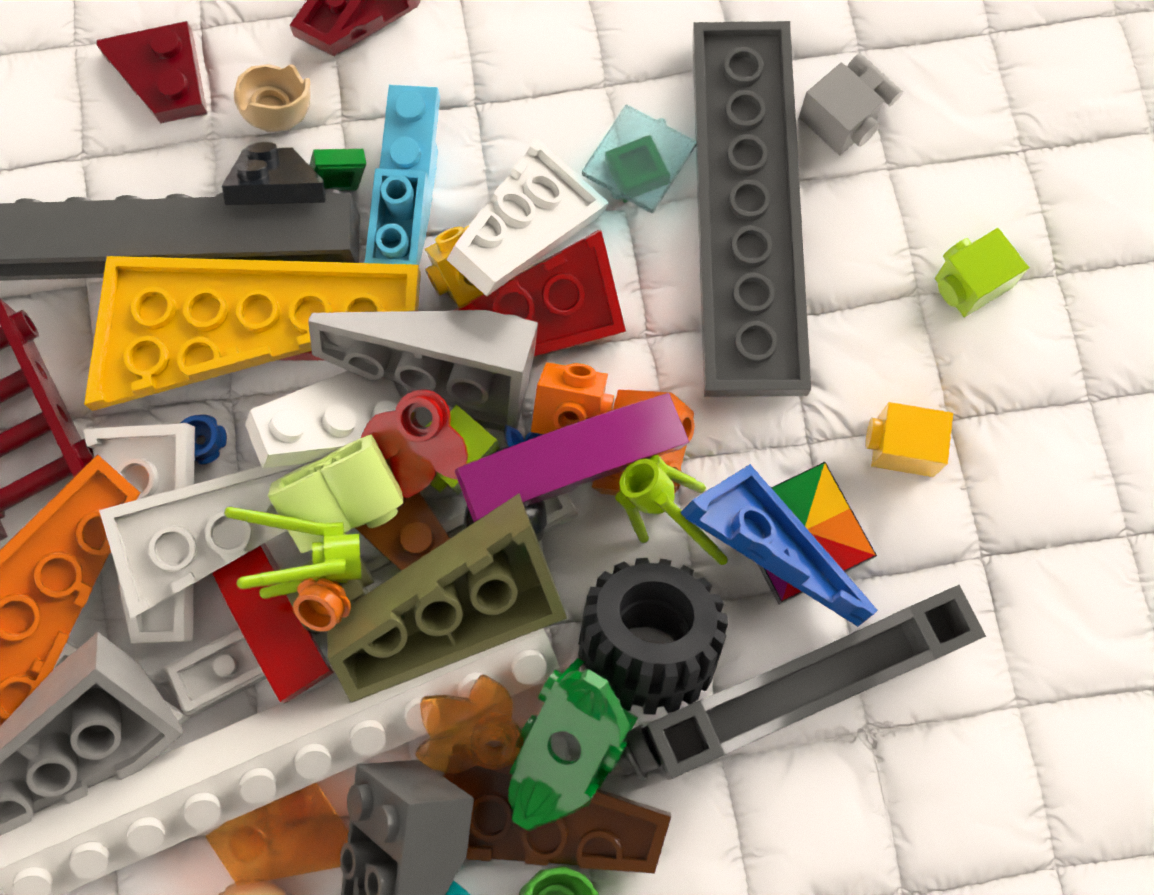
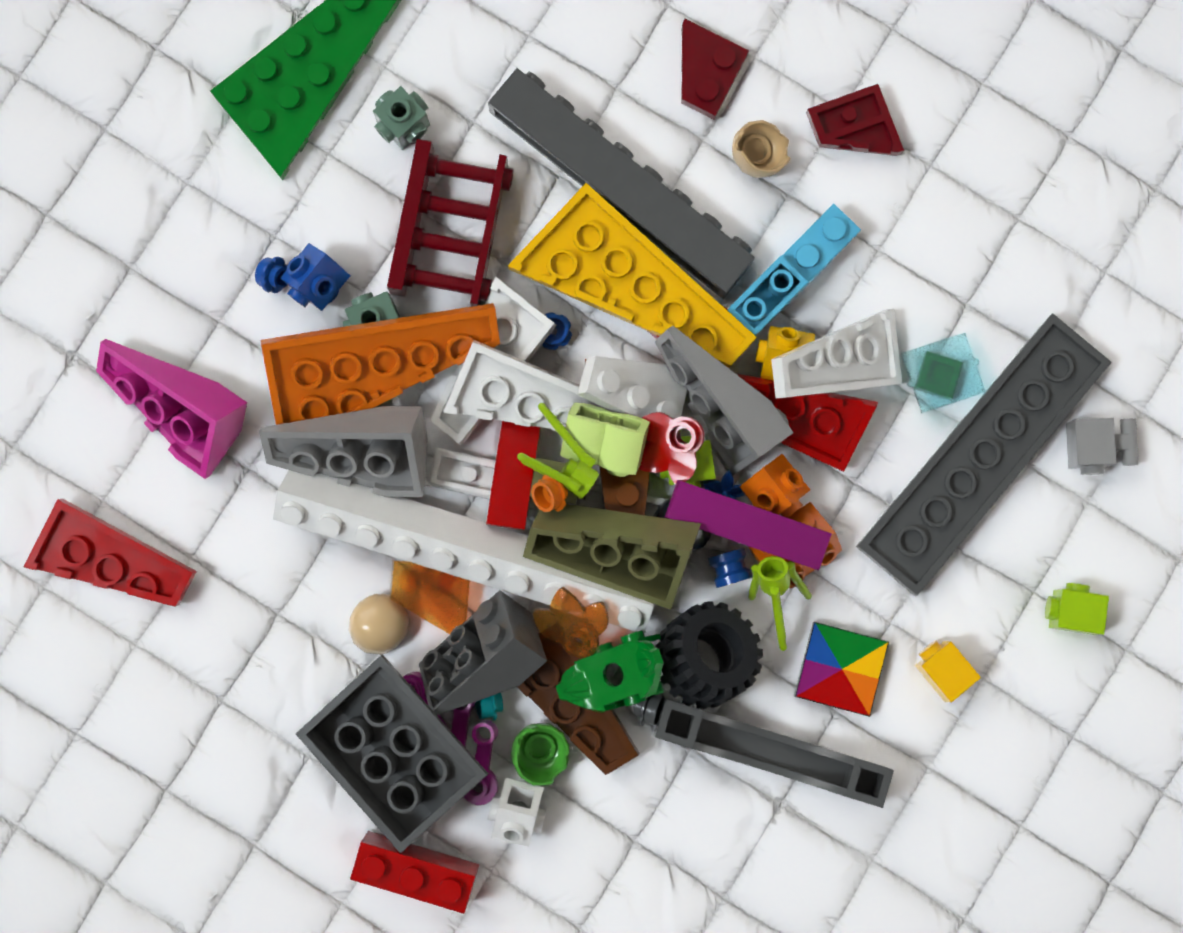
camera: 35 degrees right, 10 degrees up
(272, 177) = (718, 208): black wing -> none
(339, 167) = (759, 231): green tile -> none
(594, 524) = (730, 567): none -> blue wheel
(761, 526) = (818, 649): blue wing -> none

